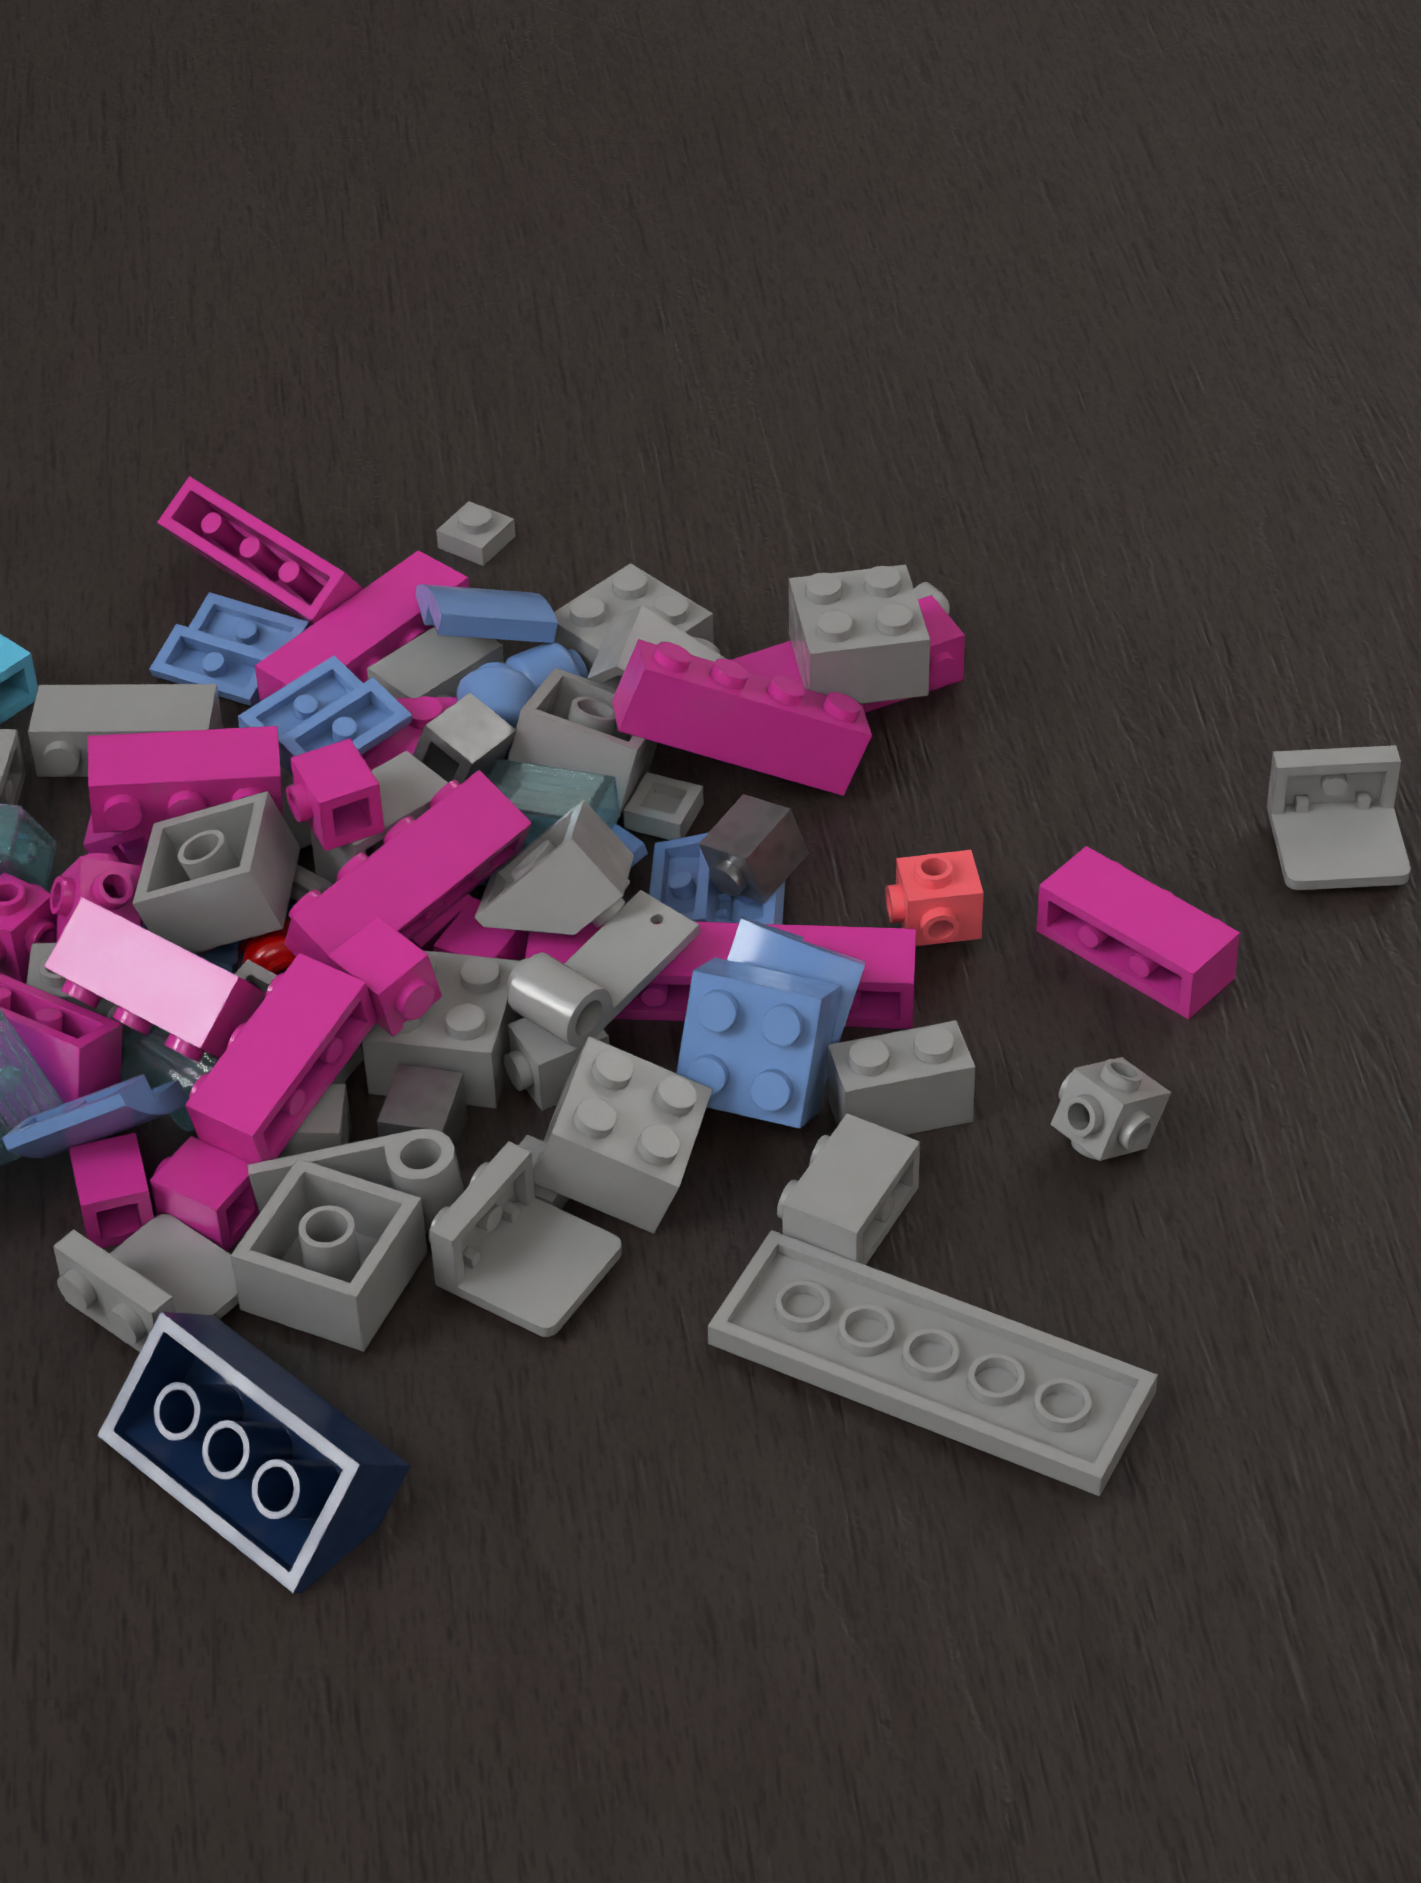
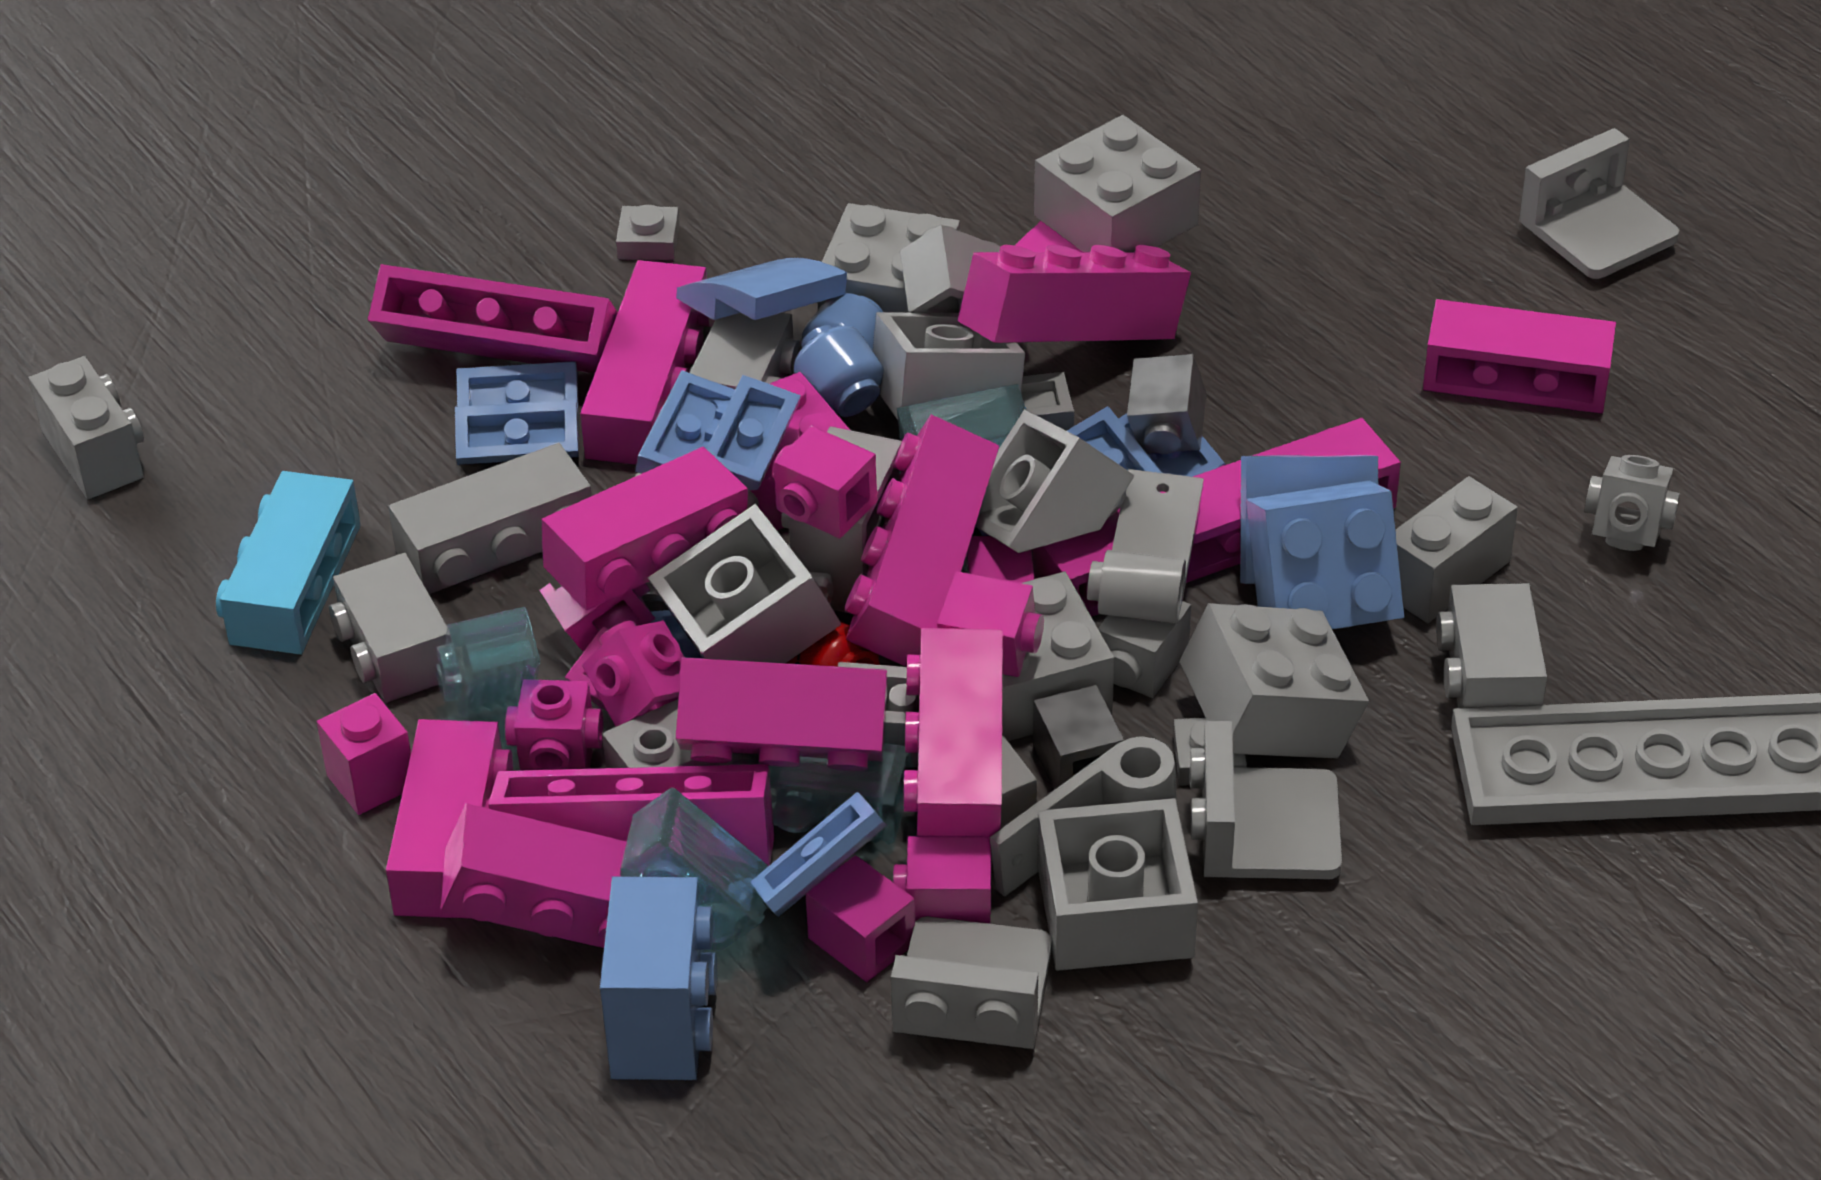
camera: 30 degrees left, 0 degrees up
(251, 1449) = (1184, 1079): dark blue slope -> none
(464, 740) = (867, 398): flat silver brick -> none
(937, 897) = (1346, 385): coral brick -> none

